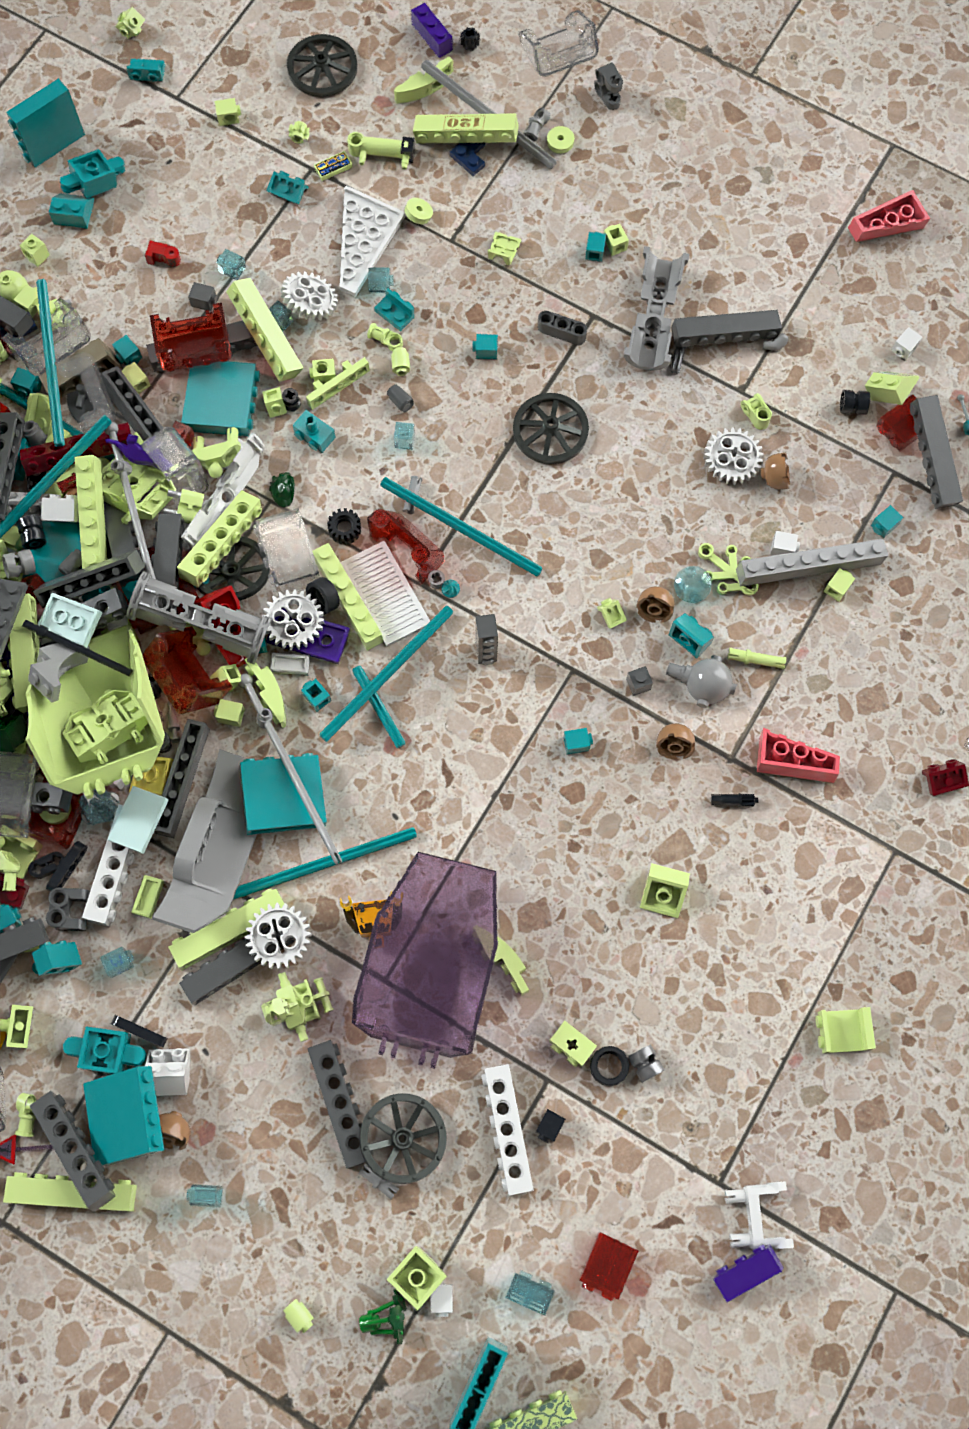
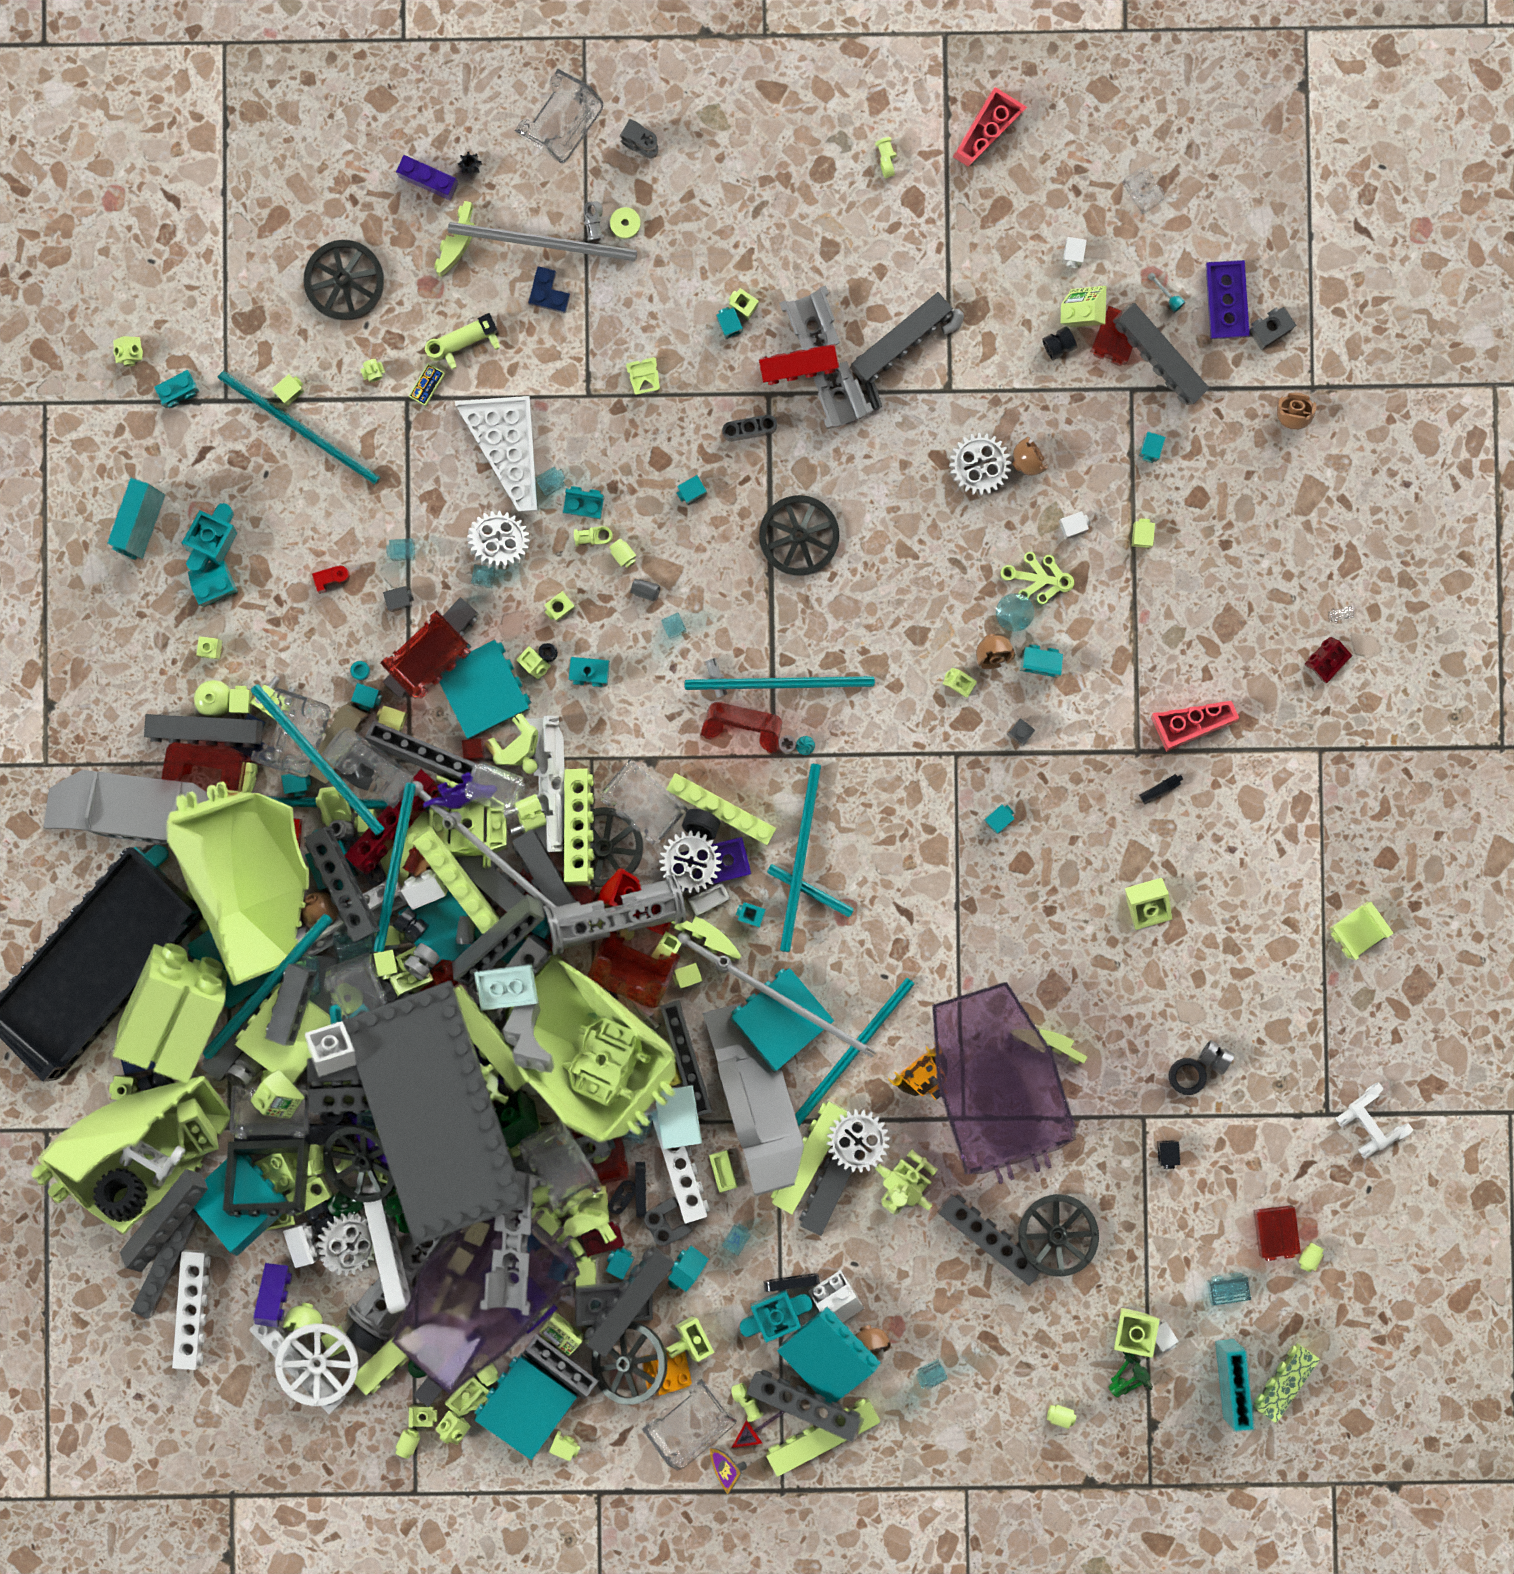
camera: 25 degrees left, 15 degrees up
(43, 632) = (494, 1013): black bar -> none
(137, 332) = (360, 670): none -> teal tile
(216, 142) = (275, 412): none -> teal axle
(264, 329) = (482, 601): yellowish green brick -> none
(282, 489) = (596, 742): dark green hat -> none
(286, 187) = (399, 435): teal bracket -> none
(341, 516) = (663, 744): black tyre -> none
(348, 376) = (585, 592): yellowish green hinge -> none
(378, 1182) = (1065, 1280): light grey pin -> none
(386, 593) = (749, 783): white window -> none
(418, 210) = (540, 393): yellowish green piece -> none
(465, 128) = (532, 273): yellowish green brick -> none
(486, 639) = (873, 782): dark grey brick -> none
(502, 1075) = (1173, 1210): white brick -> none
(568, 1033) = (1159, 1077): yellowish green brick -> none
(626, 1311) = (1311, 1257): none -> yellowish green brick
(631, 295) = (799, 363): none -> red wedge
(675, 741) = (1083, 767): medium nougat cylinder -> none
(706, 680) = (1078, 695): light grey piece -> none
(747, 1272) = (1388, 1171): dark purple brick -> none
(756, 408) = (974, 404): yellowish green piece -> none
(756, 658) = (1108, 648): yellowish green pin -> none
(796, 198) = (886, 155): none -> yellowish green connector
(811, 562) = (1108, 530): light grey brick -> none

